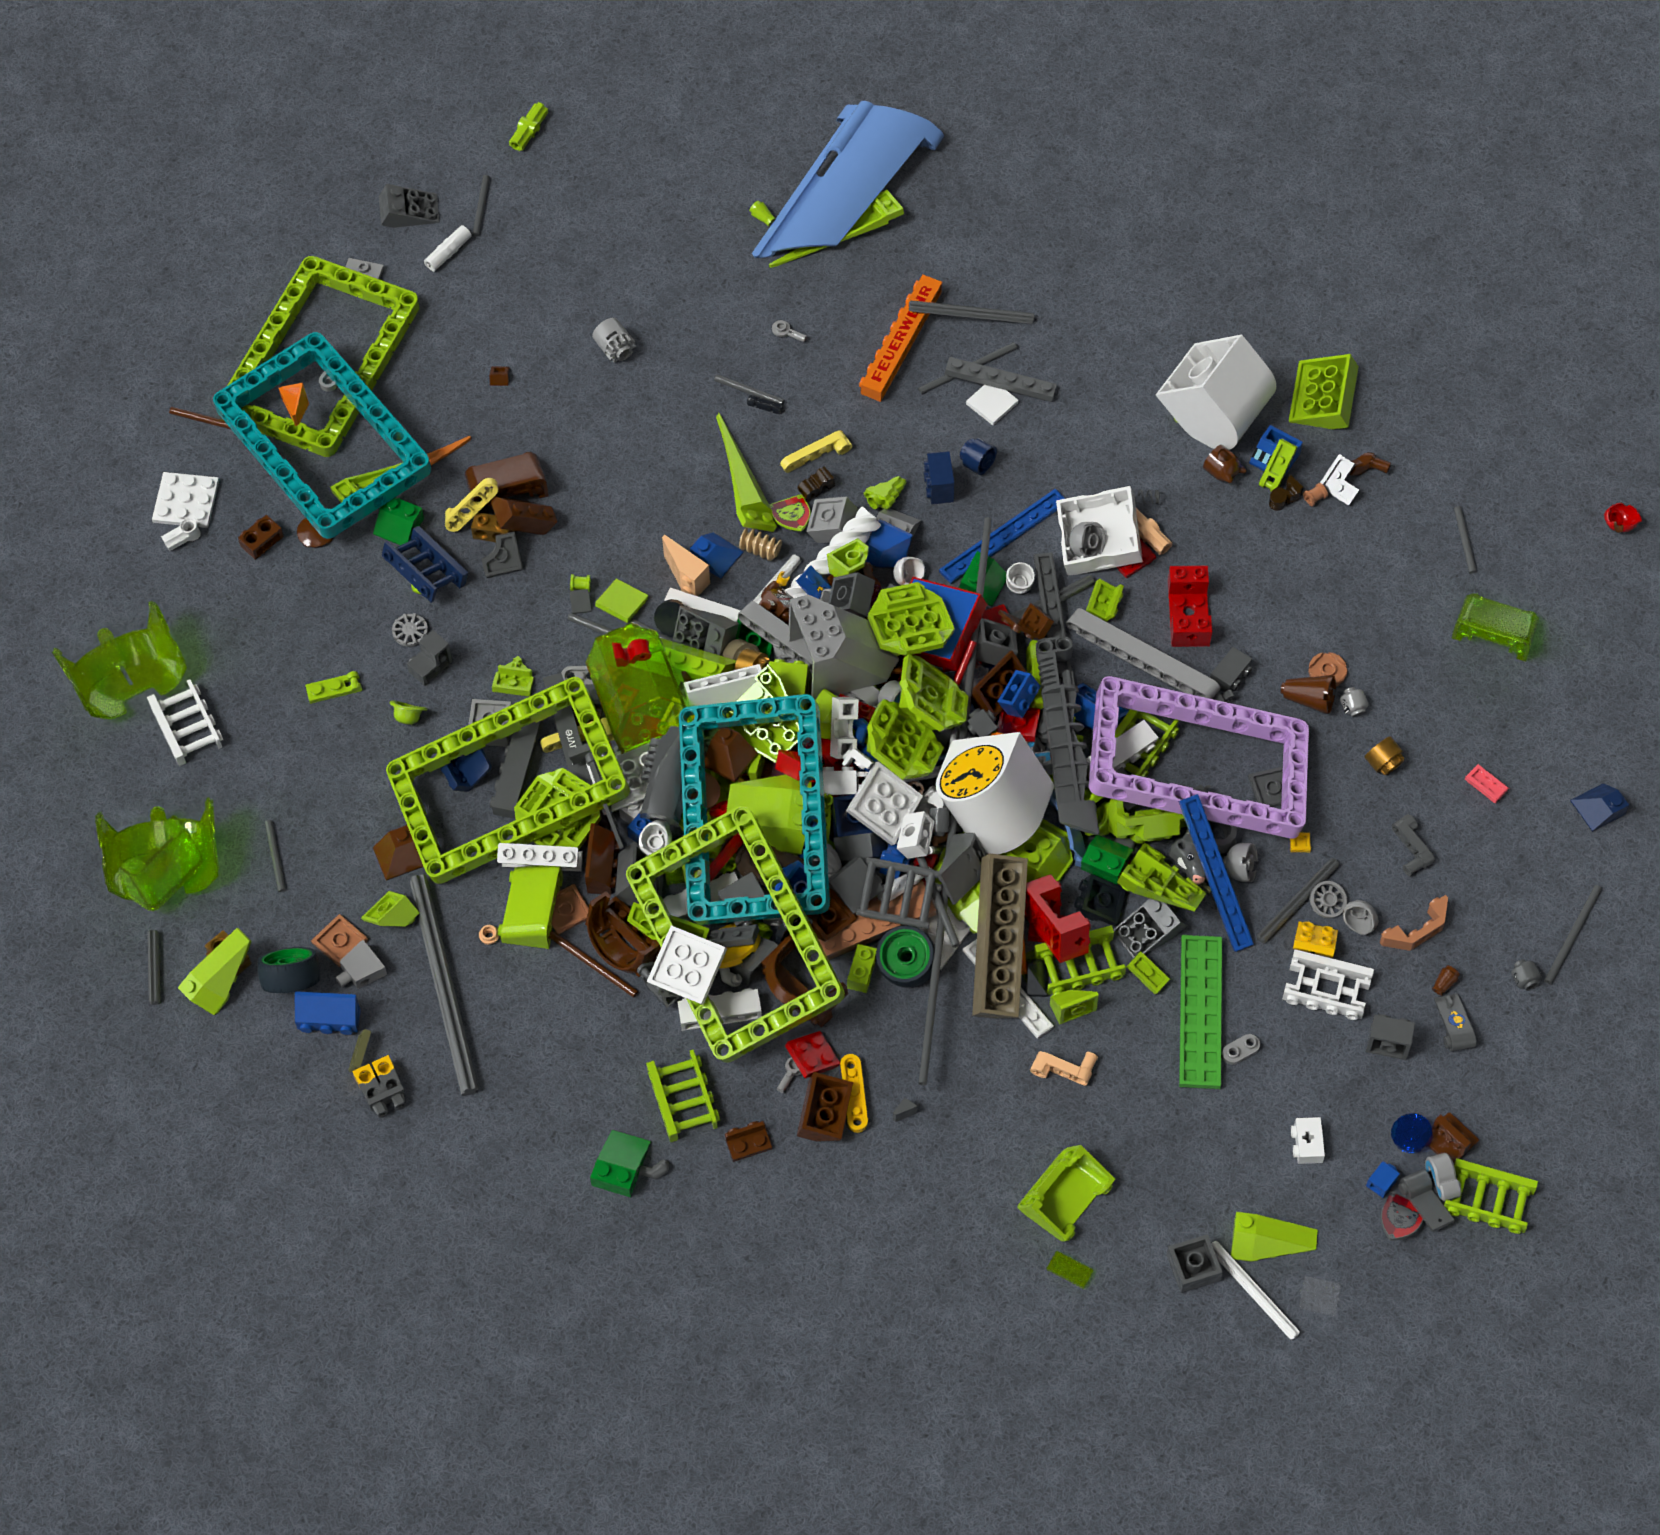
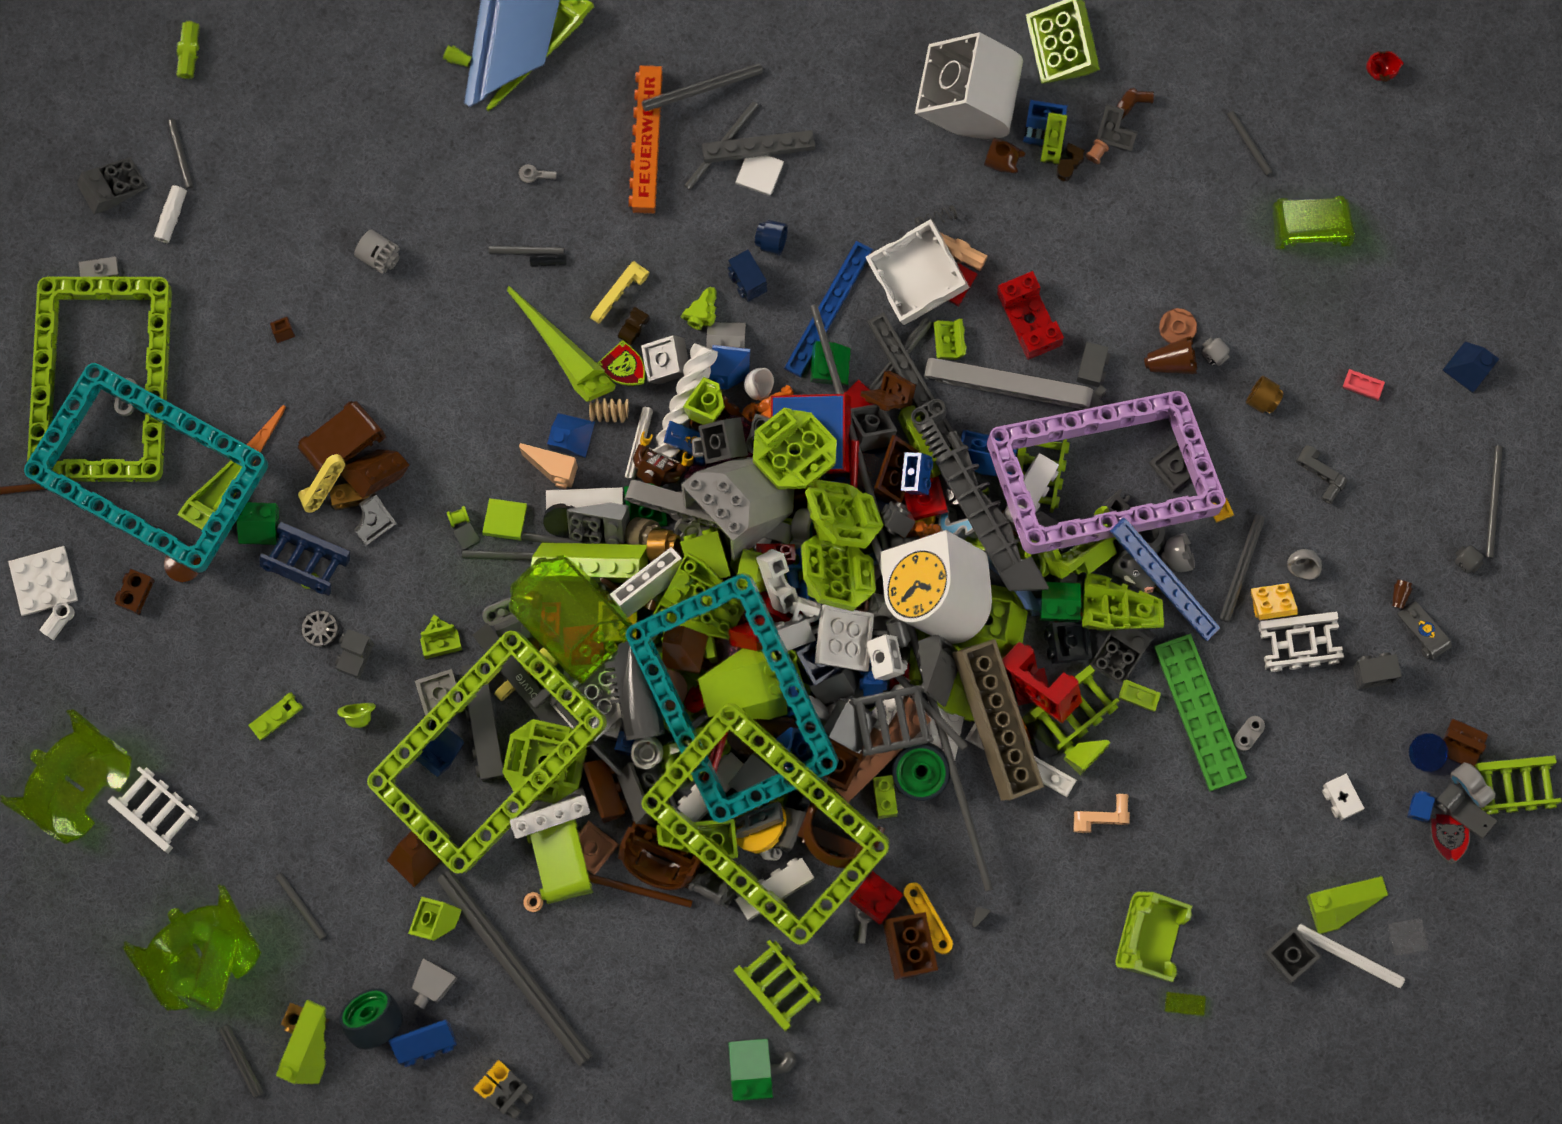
camera: 20 degrees left, 15 degrees up
(295, 400) = (109, 448): orange slope -> none
(338, 939) = (399, 964): nougat tile -> none
(359, 1050) = (468, 1064): olive tile -> none
(636, 651) = (555, 590): red leg -> none
(687, 965) = (736, 872): white plate -> none
(747, 1140) = (855, 1003): reddish brown bracket -> none
(1017, 575) = (864, 349): white helmet -> none
(1087, 539) = (910, 287): light grey cylinder -> none
(1328, 899) = (1268, 557): light grey wheel -> none
(1397, 938) = (1369, 530): nougat slope -> none

